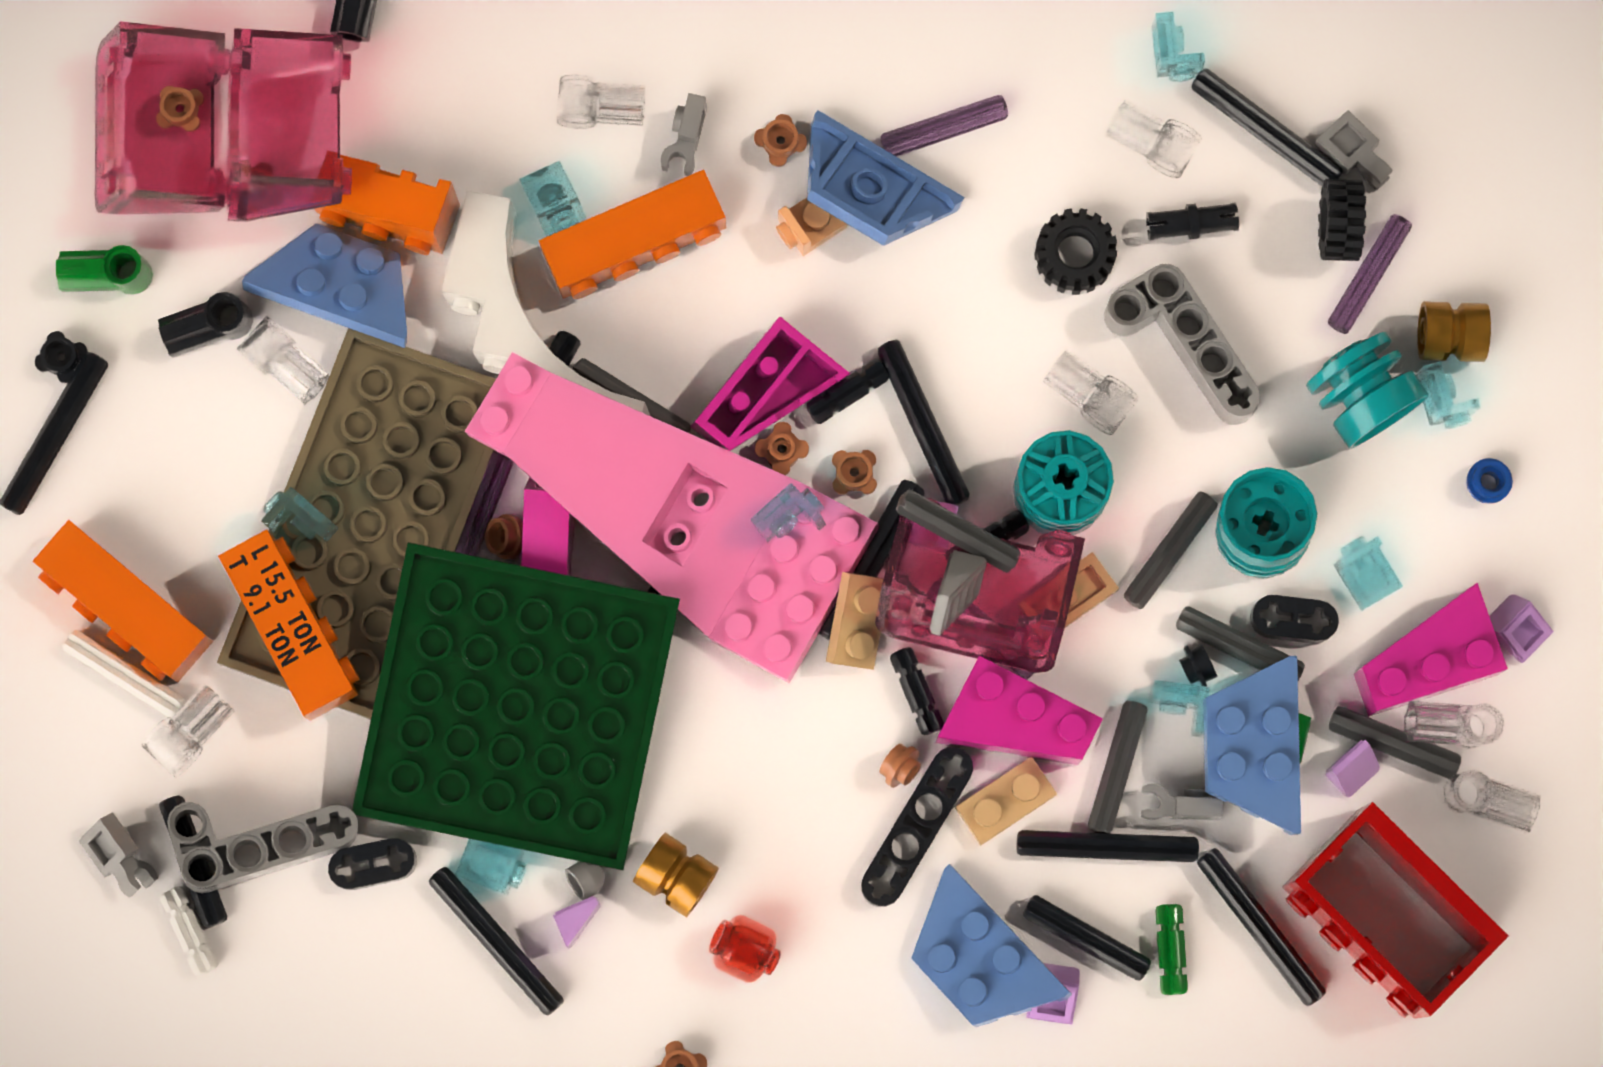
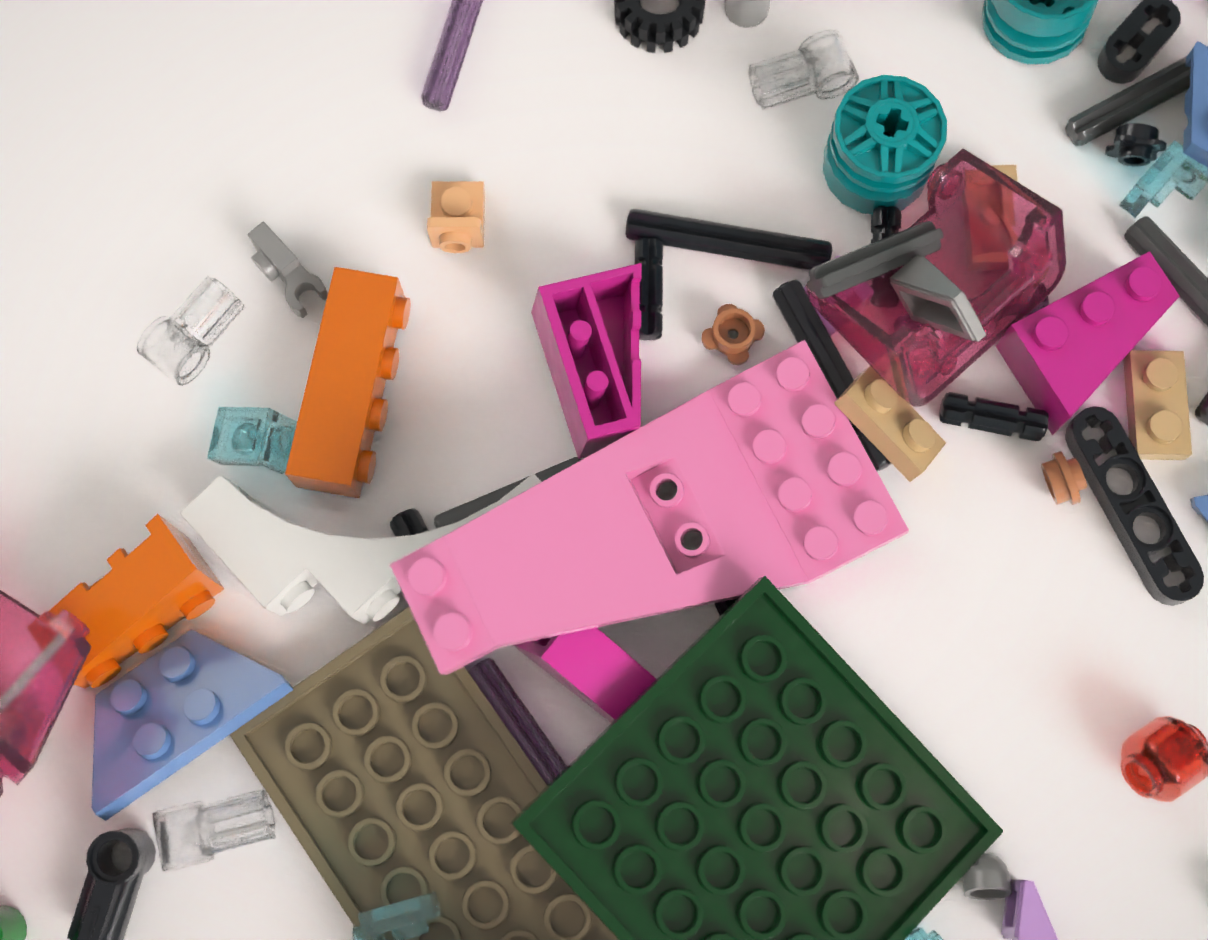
camera: 55 degrees left, 5 degrees down
(504, 536) = (565, 717): nougat plate -> none
(675, 874) = (1053, 774): pearl gold wheel -> none
(780, 127) = (353, 177): nougat plate -> none
(780, 513) = (743, 422): clear light blue bracket -> none
(781, 435) = (655, 399): nougat plate -> none
(870, 185) = (461, 135): medium blue wing -> none
(1170, 550) = (1002, 102): dark grey axle -> none

